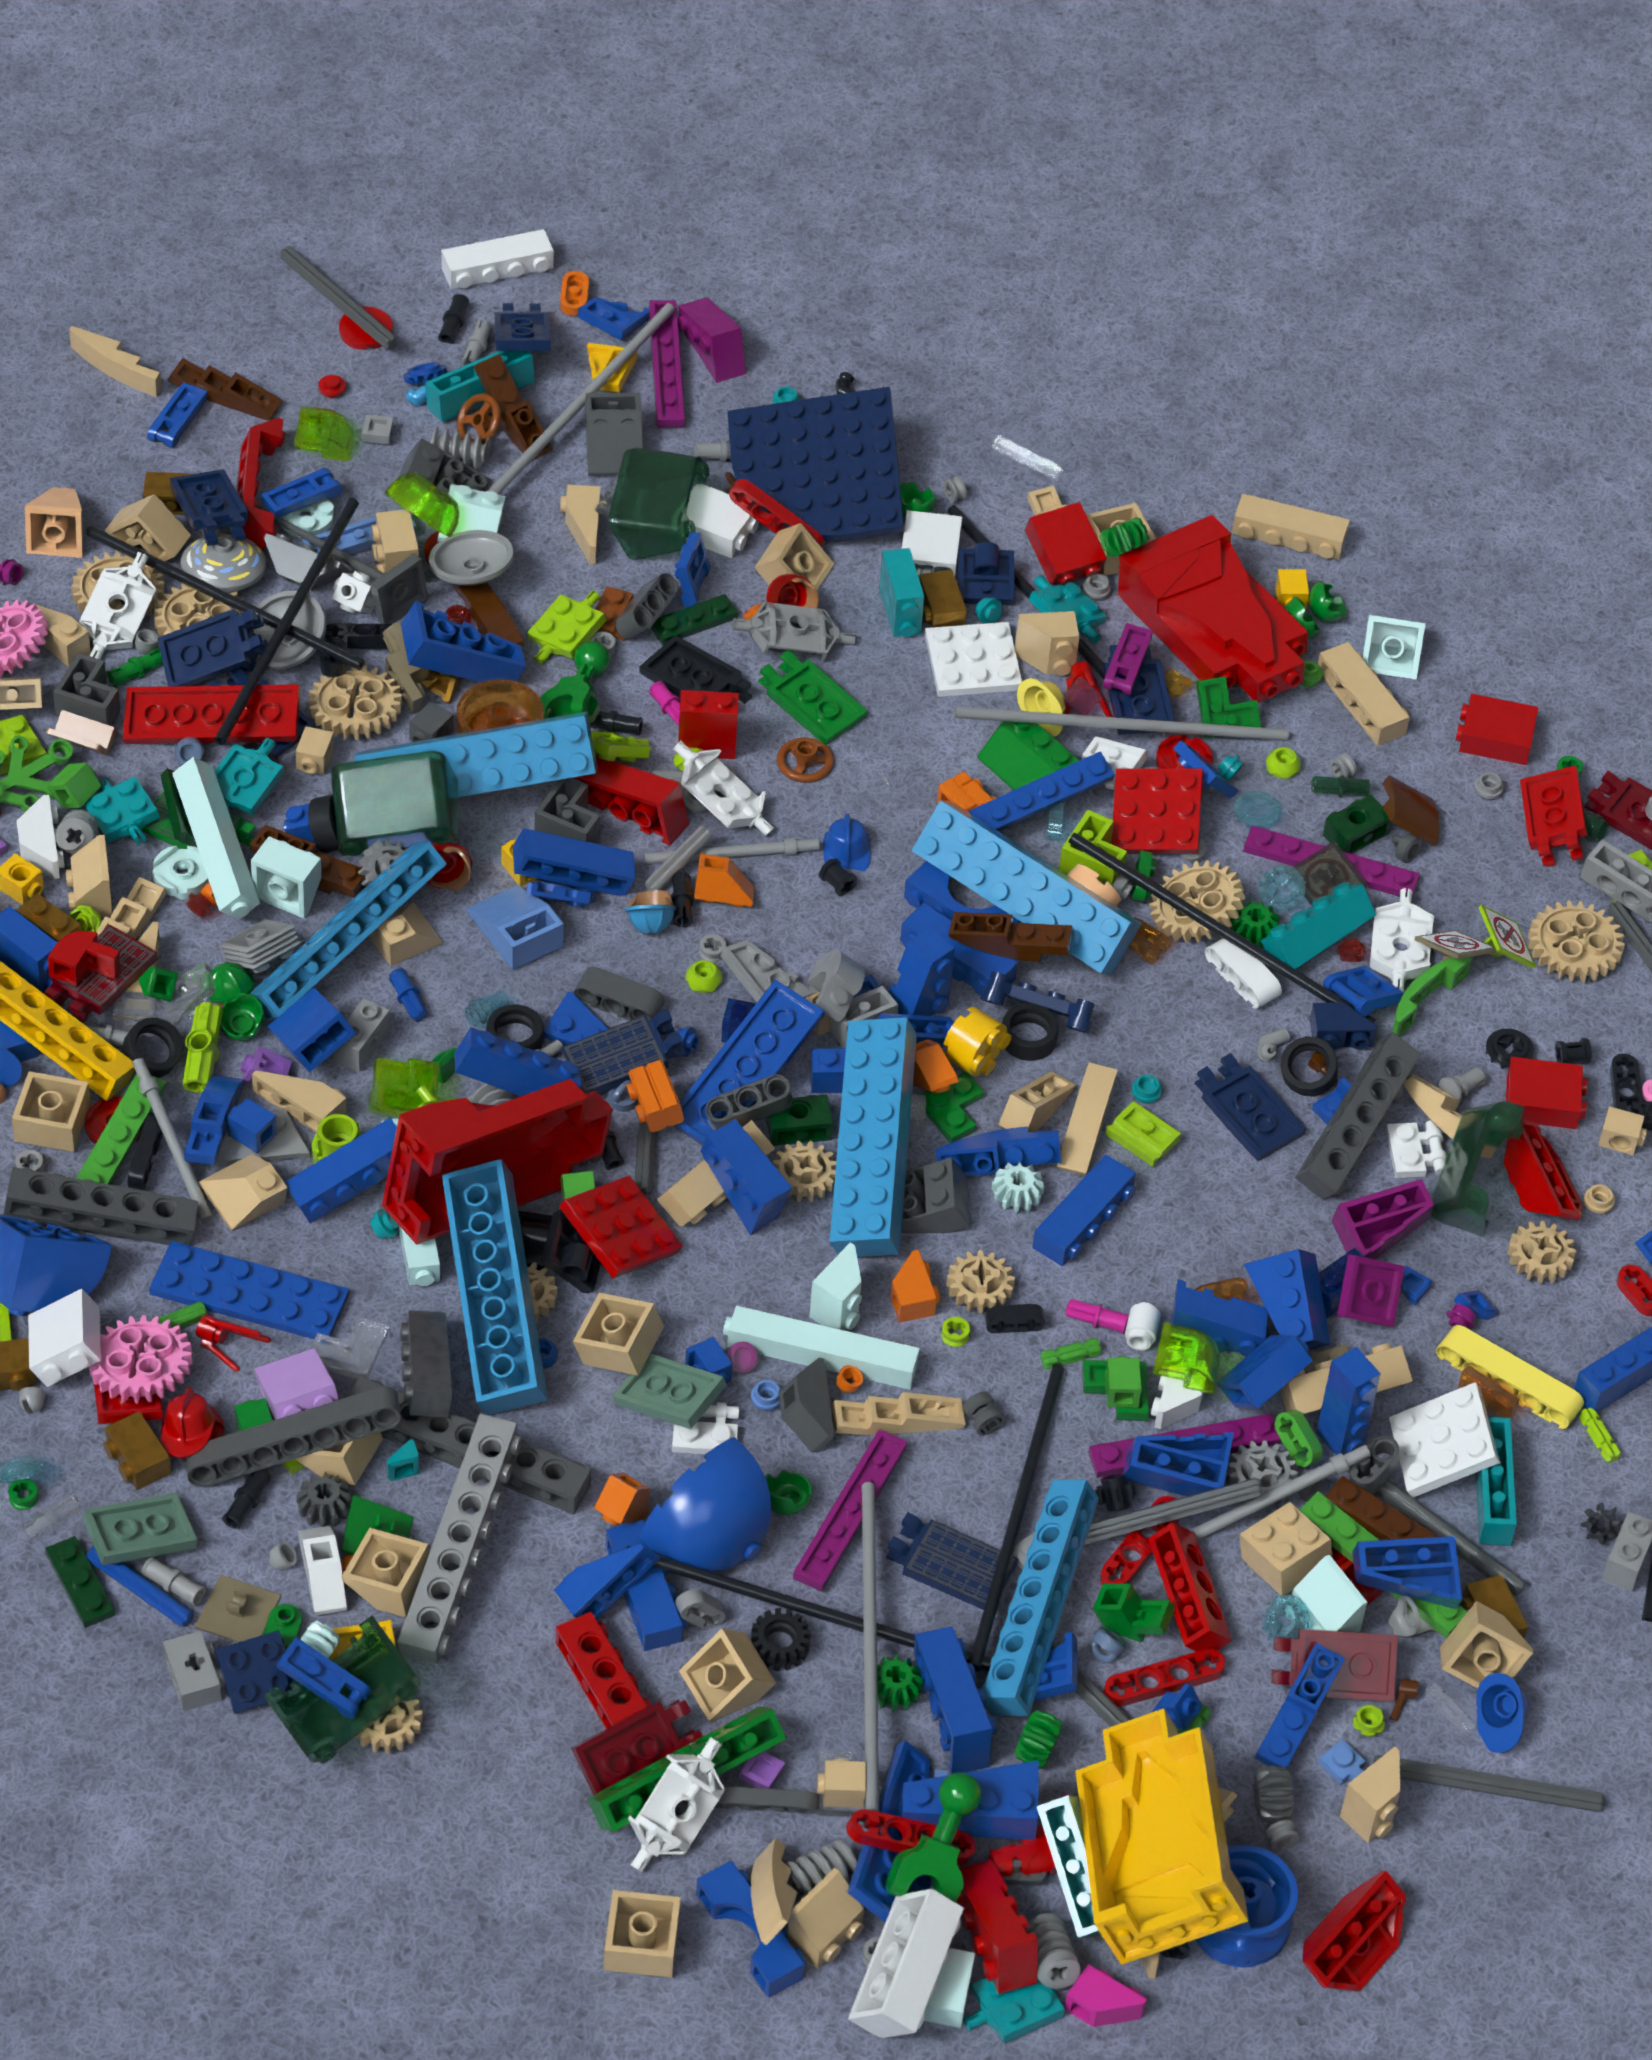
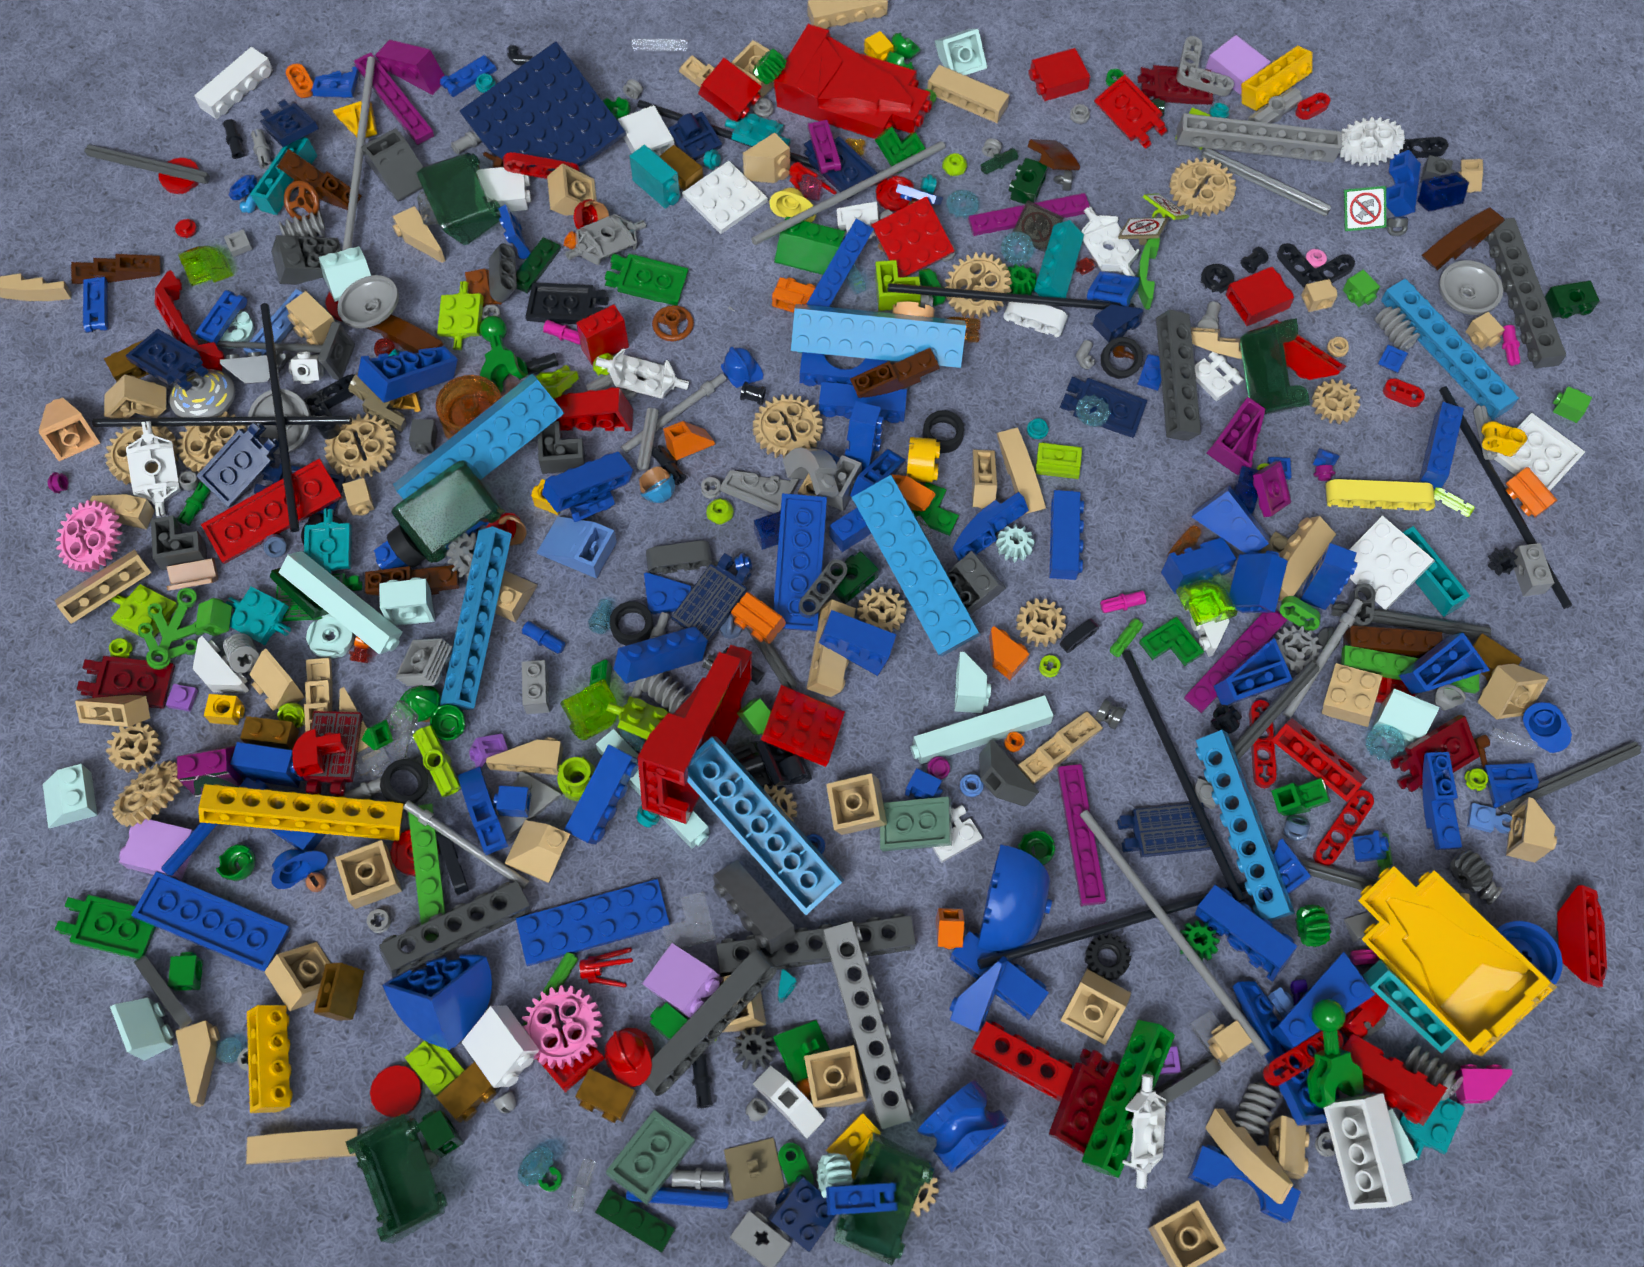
camera: 30 degrees left, 15 degrees up
(311, 1029) = (504, 706): blue brick -> none
(426, 502) = (313, 279): clear neon green brick -> none
(483, 1682) = (963, 1126): none -> blue piece
(700, 1608) = (1049, 971): light grey beam -> none
(770, 380) = (467, 75): none -> blue plate
(872, 934) = (769, 433): none -> tan gear
(1078, 1013) = (910, 412): dark blue plate -> none
(1123, 1382) = (1180, 641): bright green brick -> none
(1142, 1326) = (1155, 593): white brick -> none
(1218, 1108) = (1096, 418): none -> clear light blue gear
(1413, 1740) = (1510, 781): none -> blue wing
(1494, 1395) = (1372, 513): clear orange plate -> none

